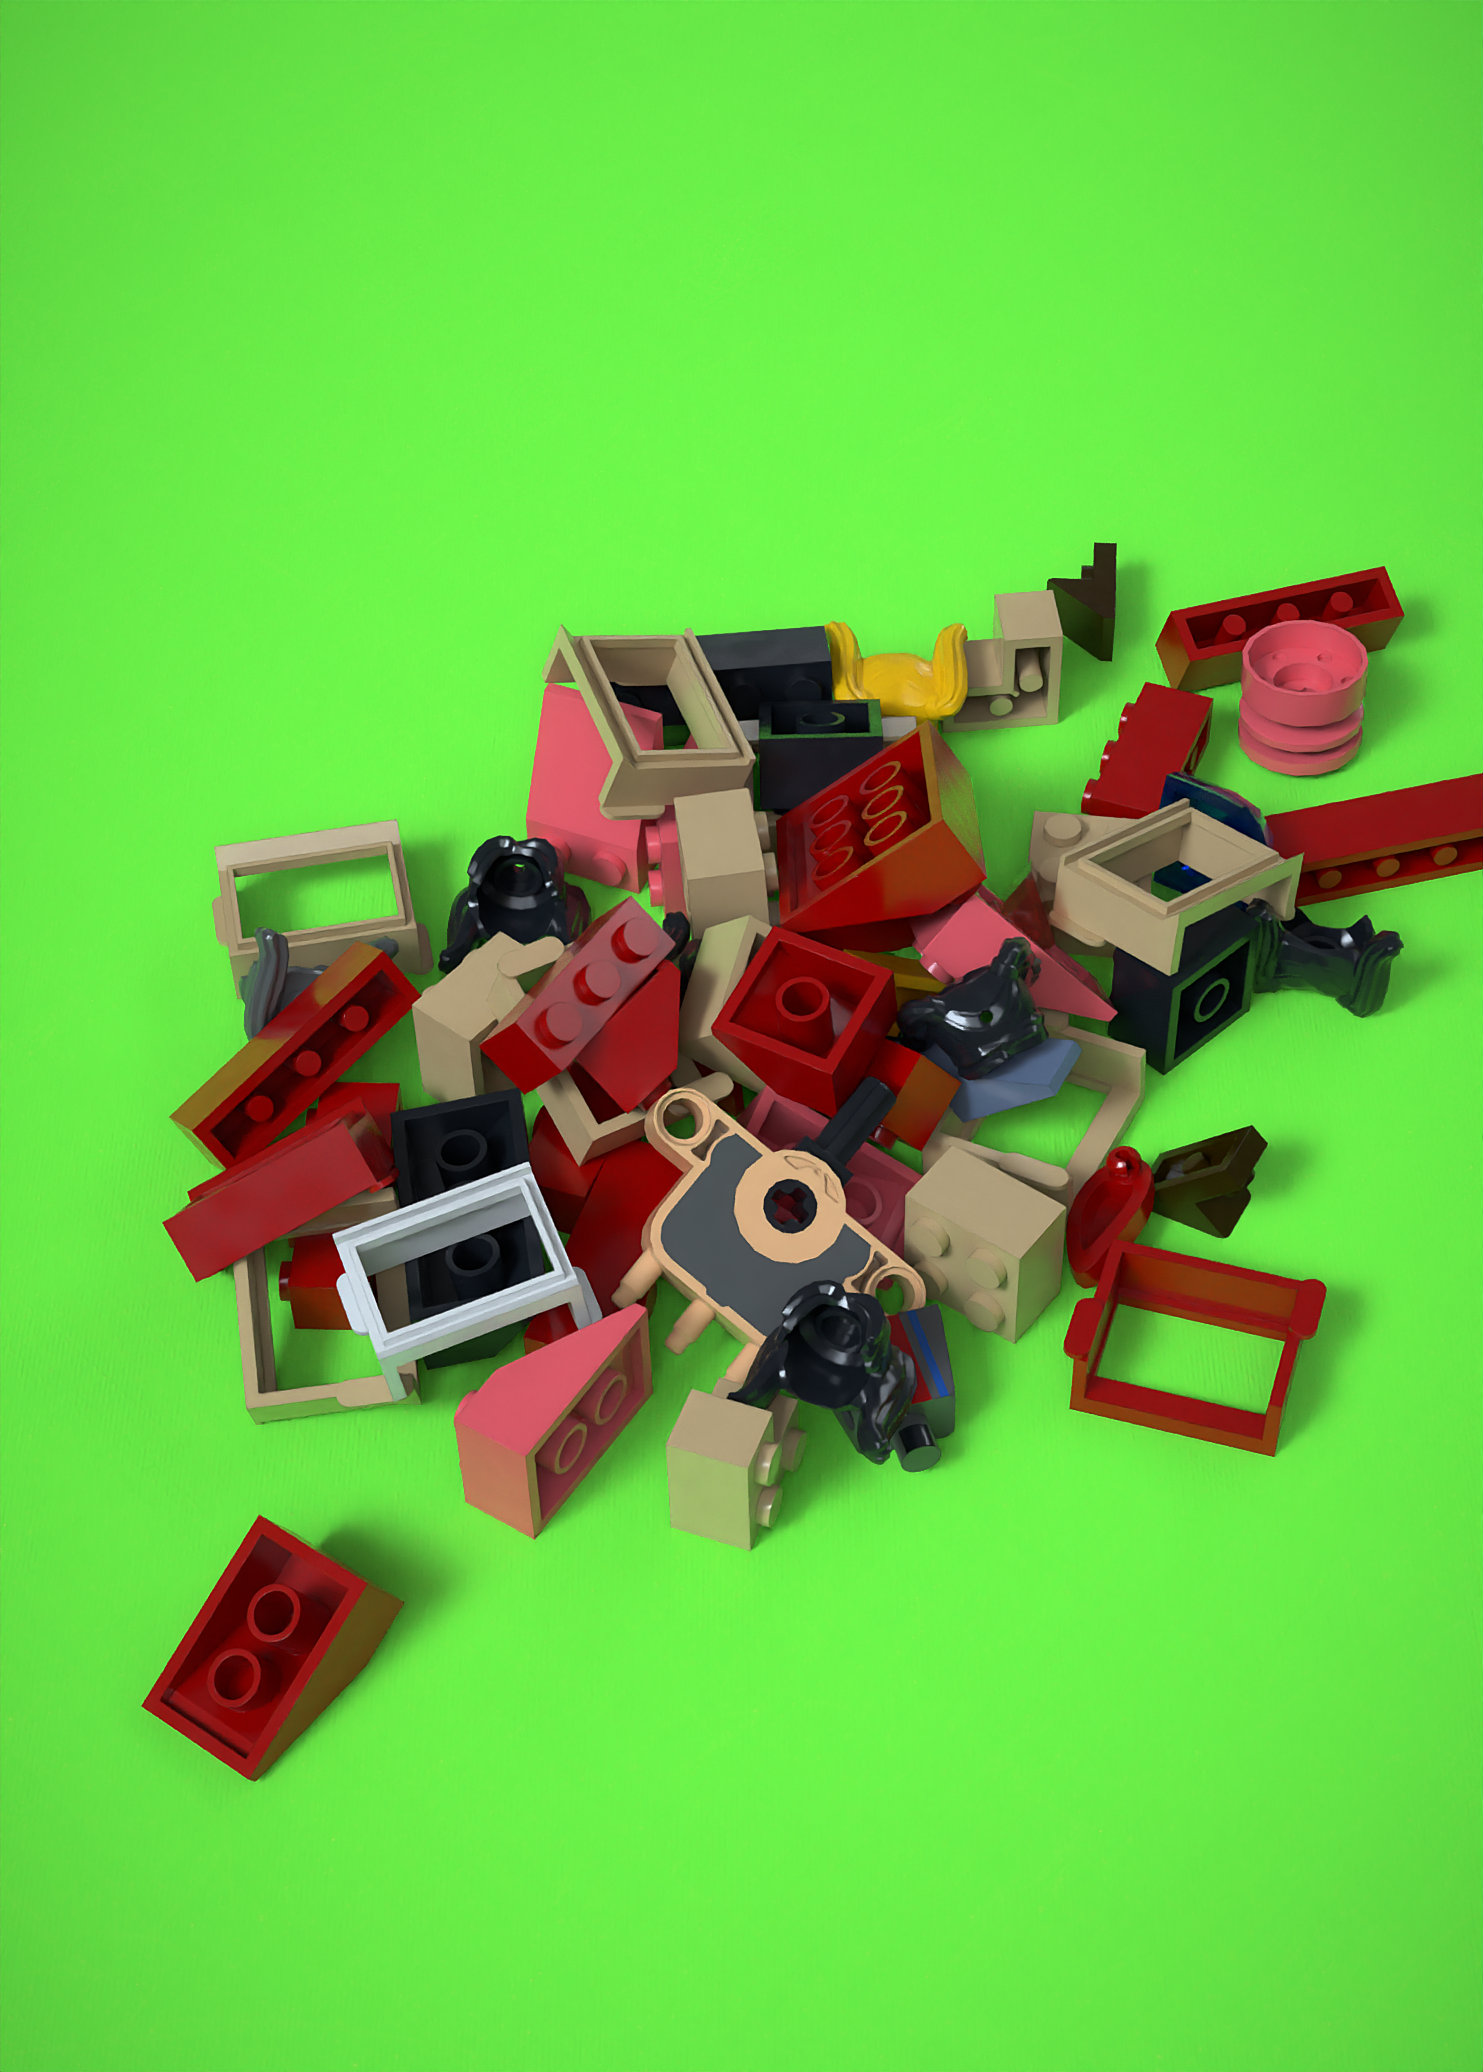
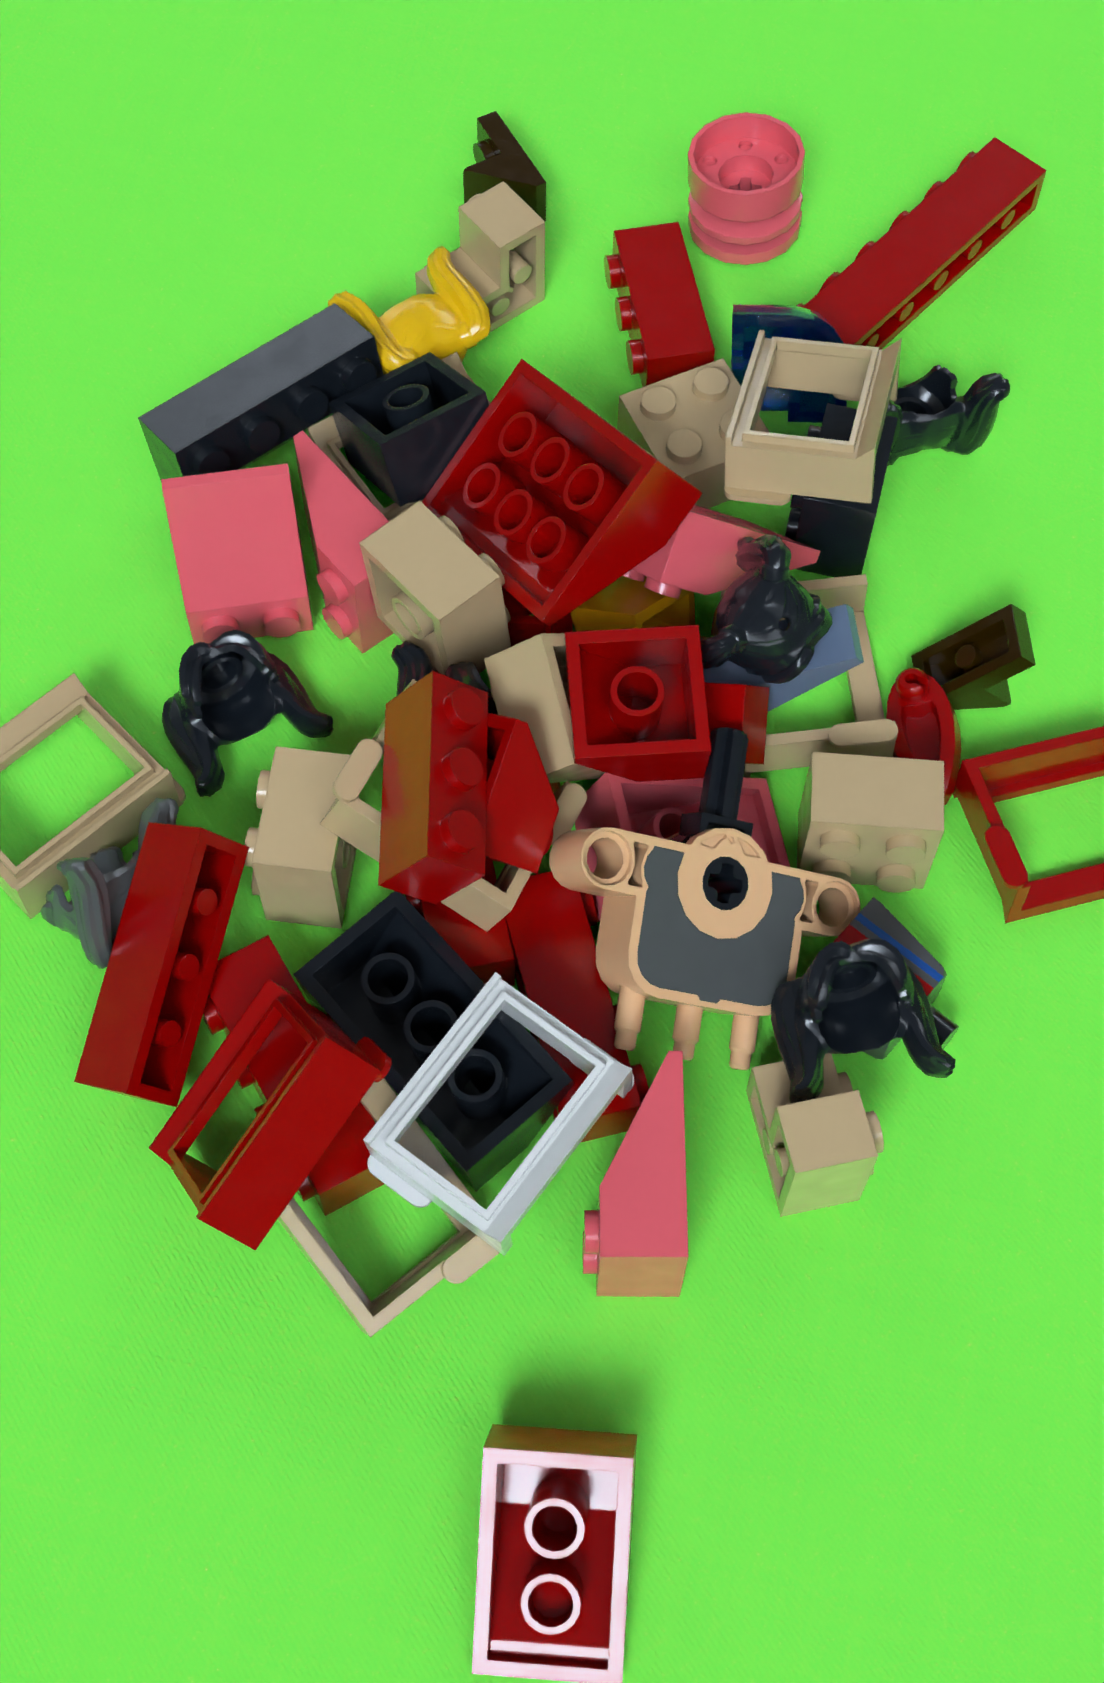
camera: 35 degrees left, 15 degrees up
(649, 779) = (311, 438): tan piece -> none
(1027, 907) = (719, 495): clear red slope -> none
(1206, 641) = (659, 146): red brick -> none

